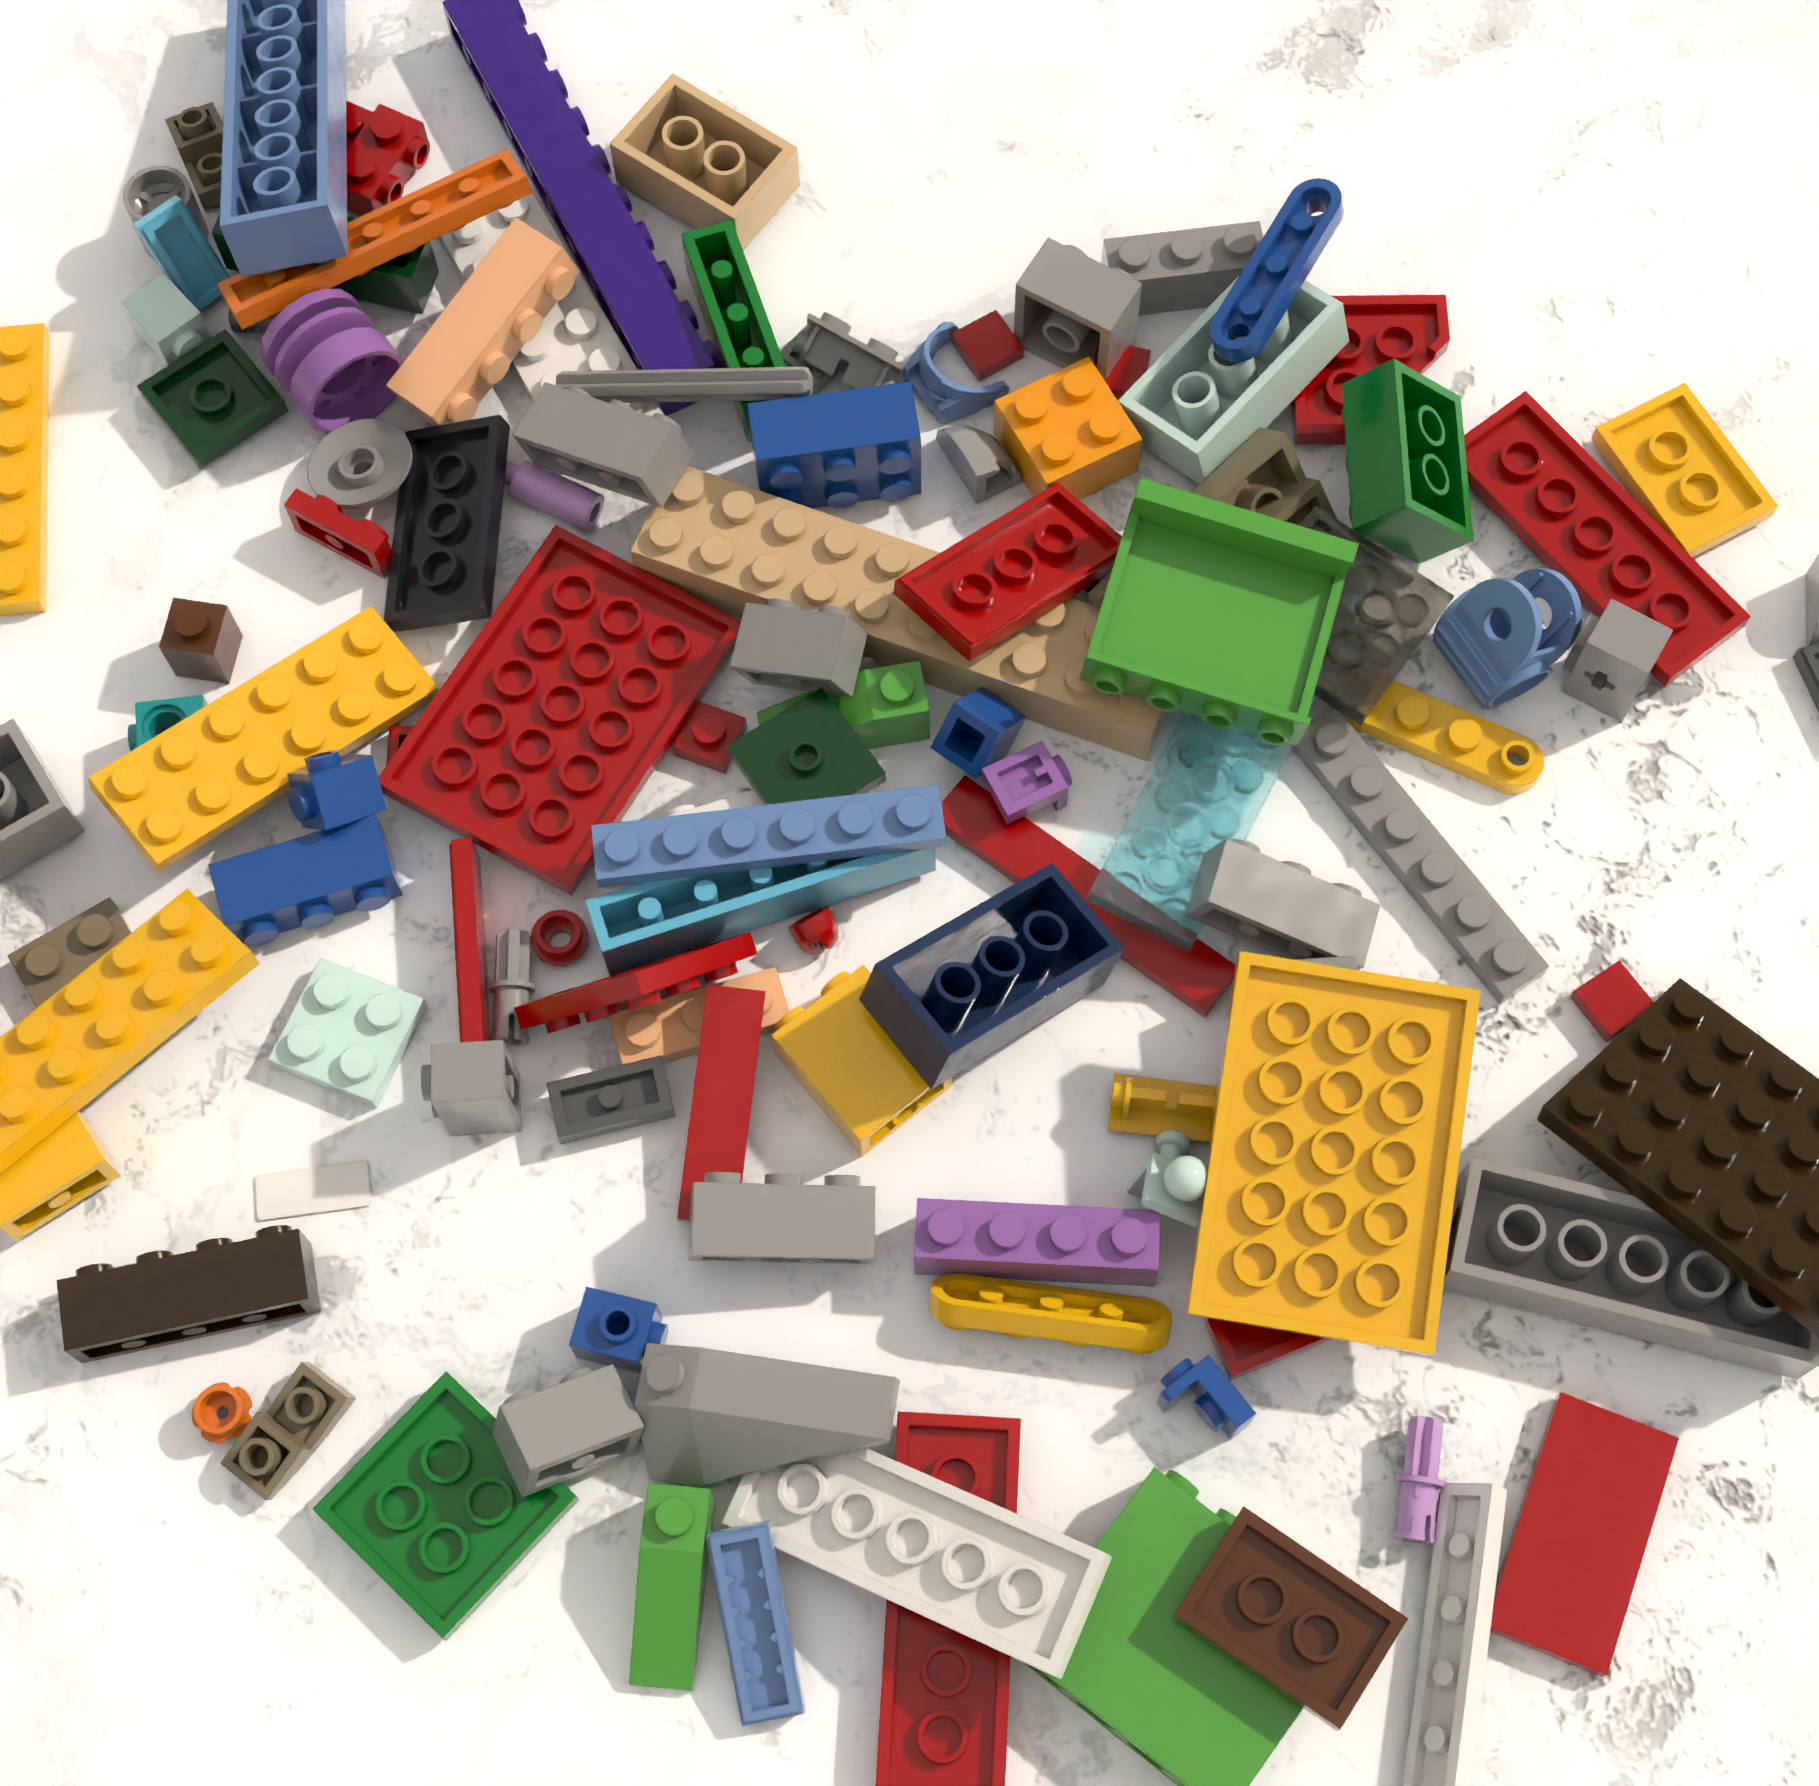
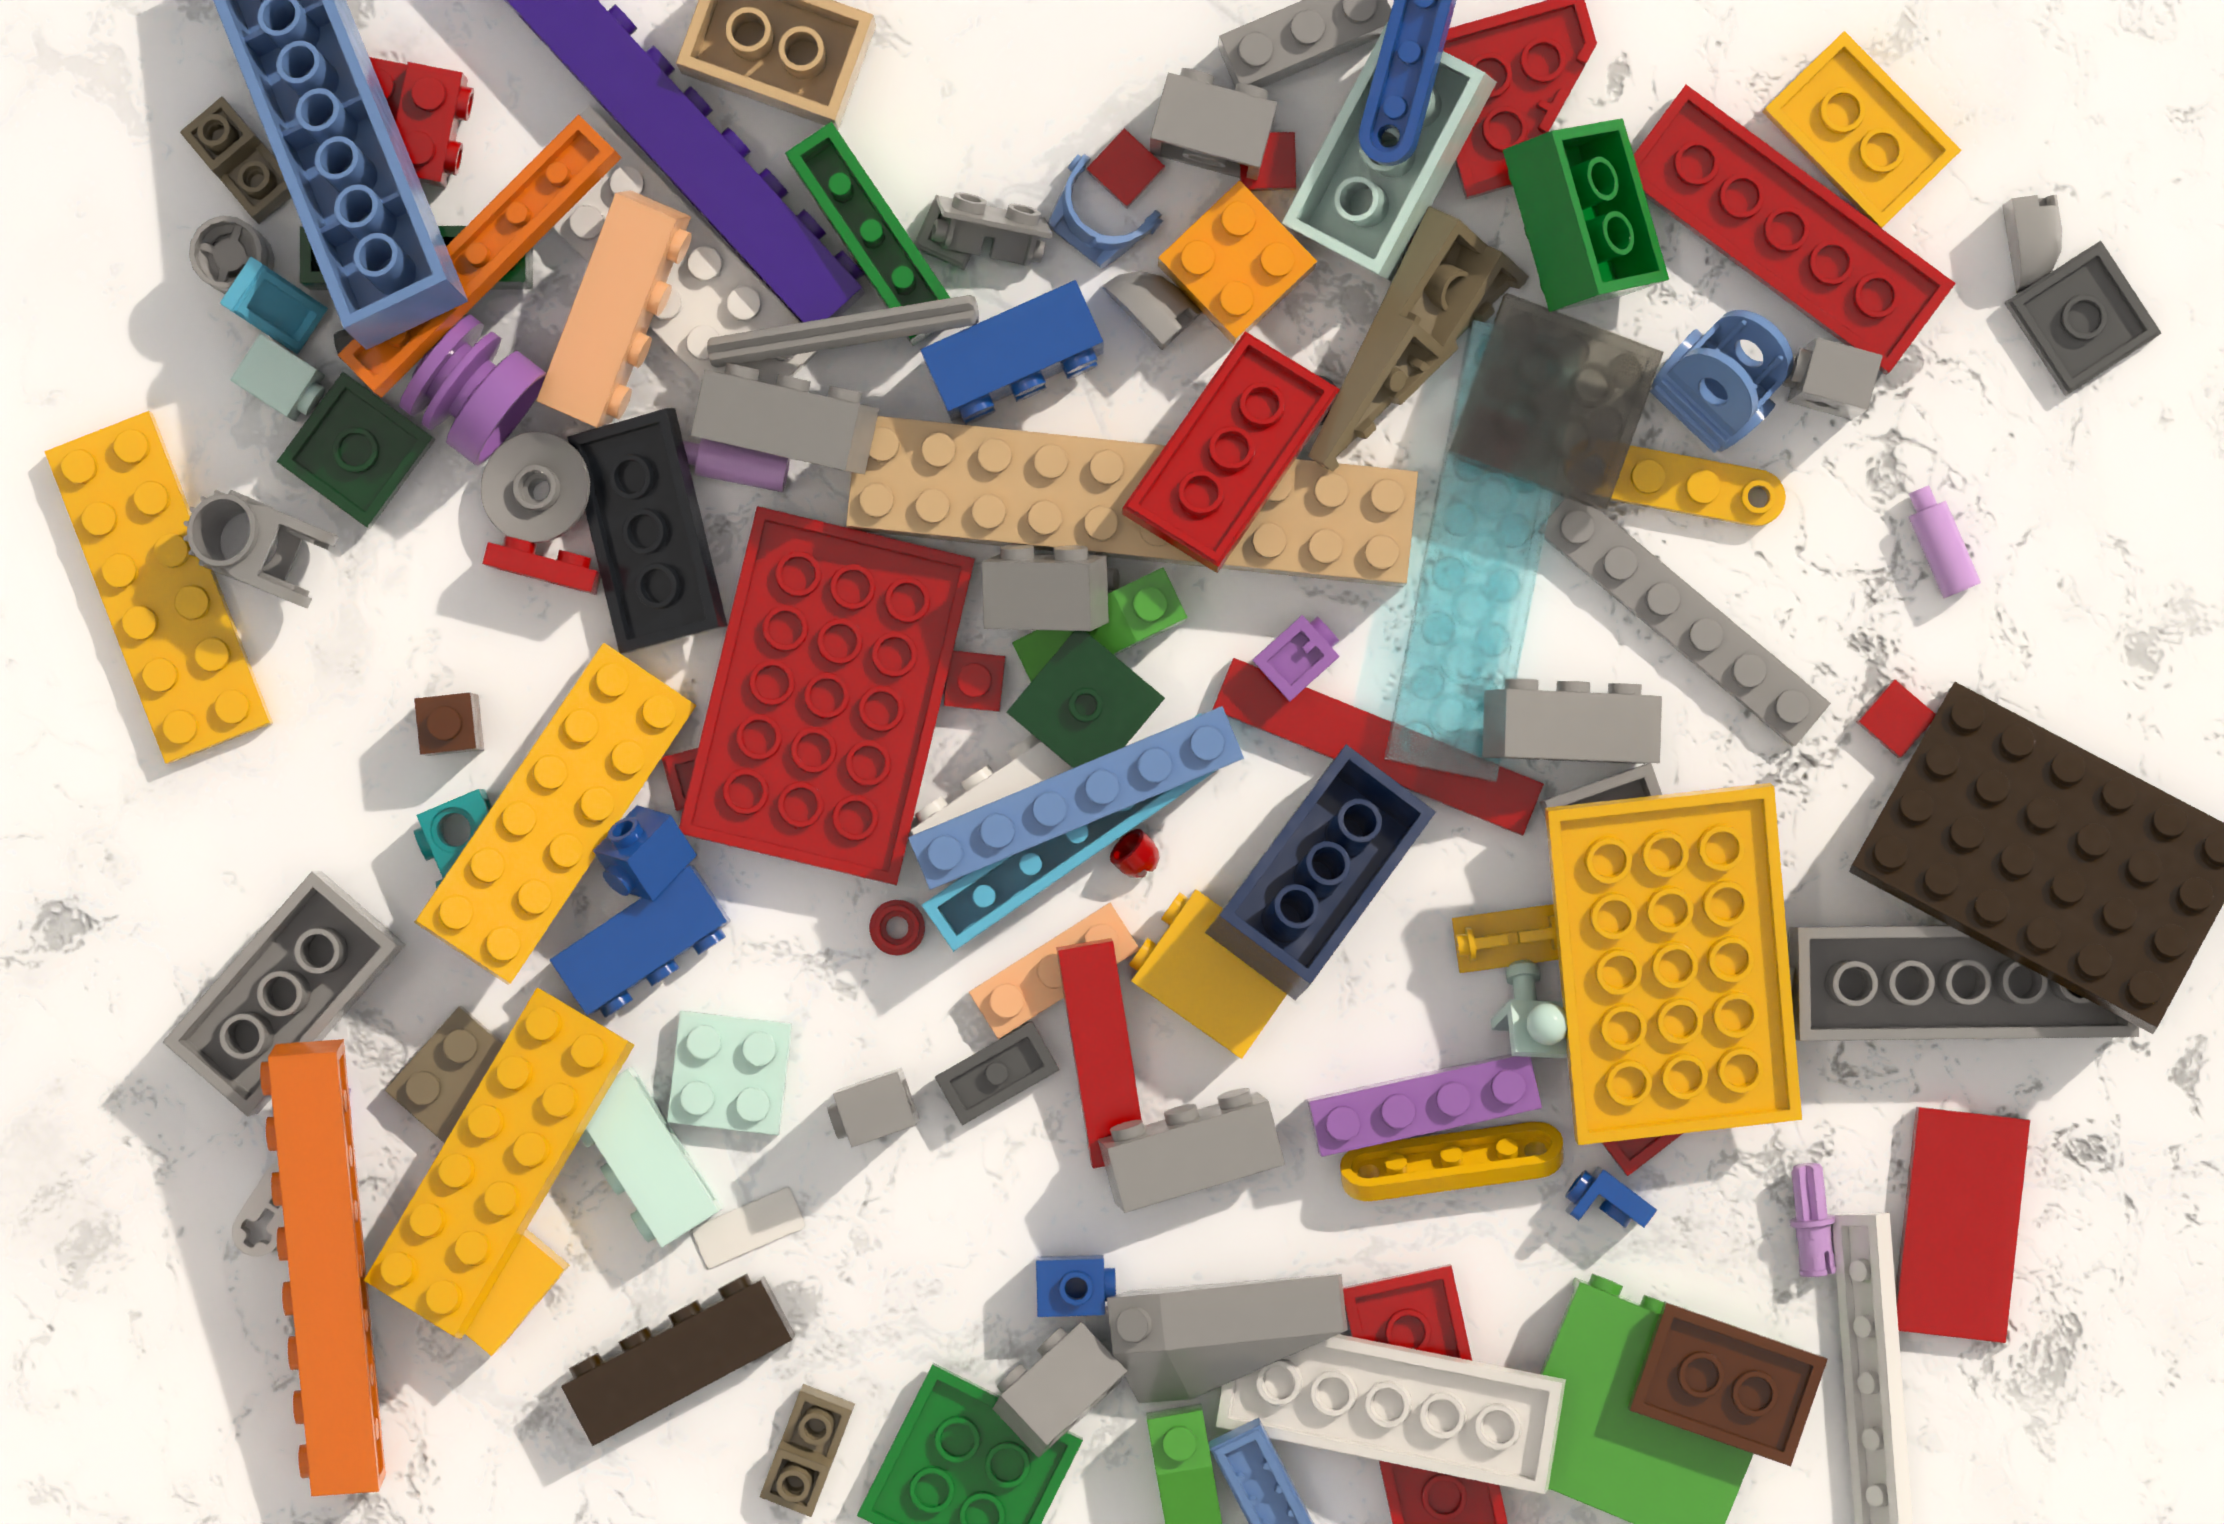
camera: 20 degrees left, 20 degrees up
(62, 412) = (205, 533): none -> light grey piece
(211, 1401) = (729, 1458): orange plate -> none
(233, 1089) = (648, 1162): none -> light aqua brick
(469, 941) = (821, 972): red tile -> none
(511, 983) = (869, 989): light grey axle -> none
(637, 986) = (993, 966): red plate -> none
(978, 731) = (1237, 618): blue brick -> none
(1218, 613) = (1441, 457): bright green panel -> none
(1692, 849) = (1942, 543): none -> lavender cylinder

